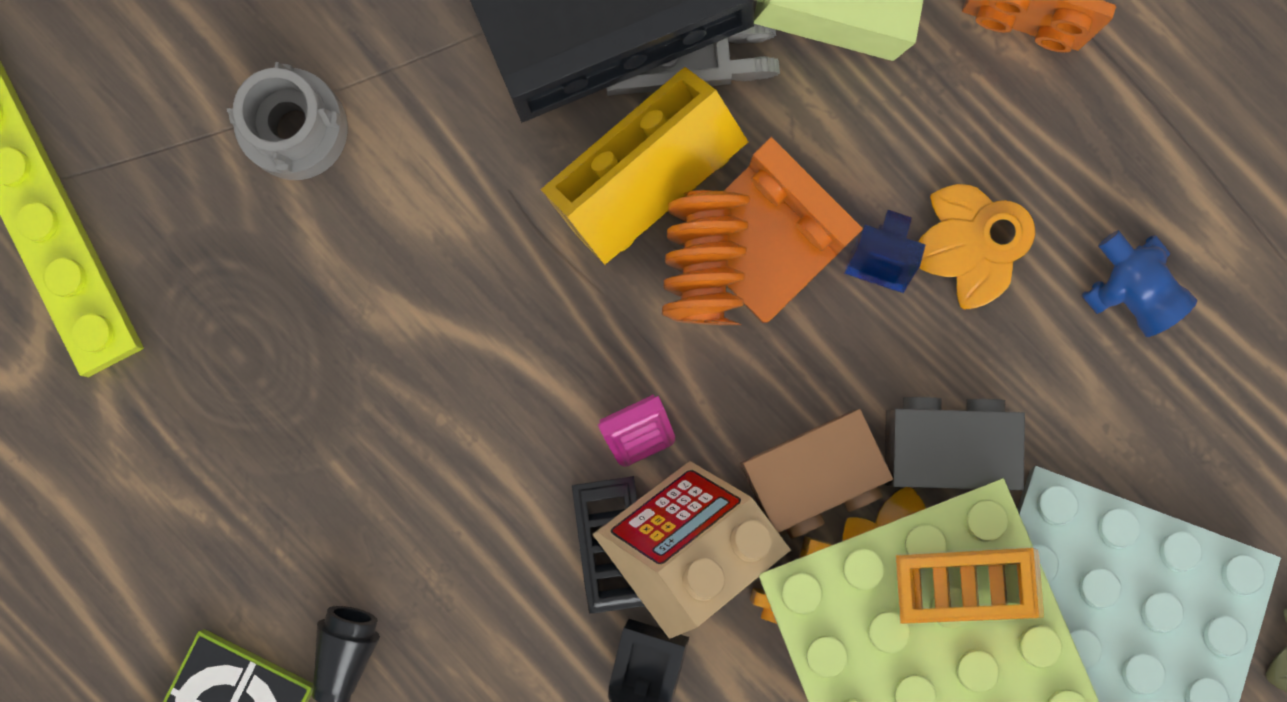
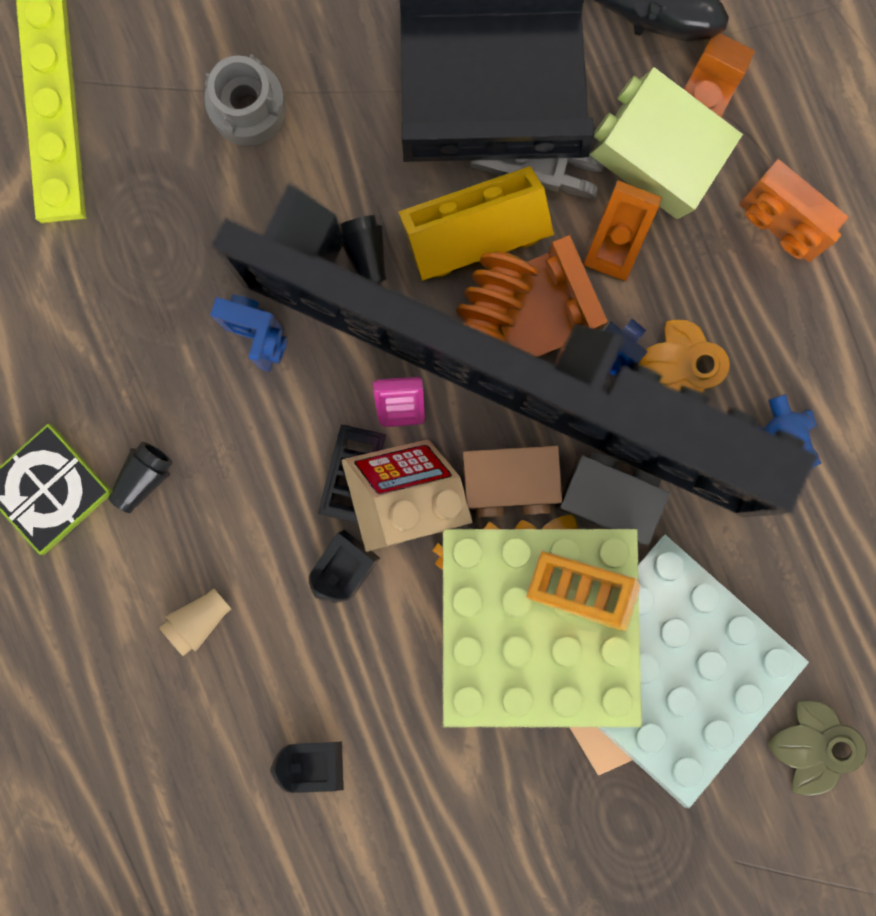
camera: 20 degrees right, 0 degrees up
(406, 400) = (246, 319): none -> blue bracket
(515, 252) = (365, 247): none -> black cone
(831, 102) = (622, 230): none -> orange slope
(858, 336) = (629, 419): none -> black piece

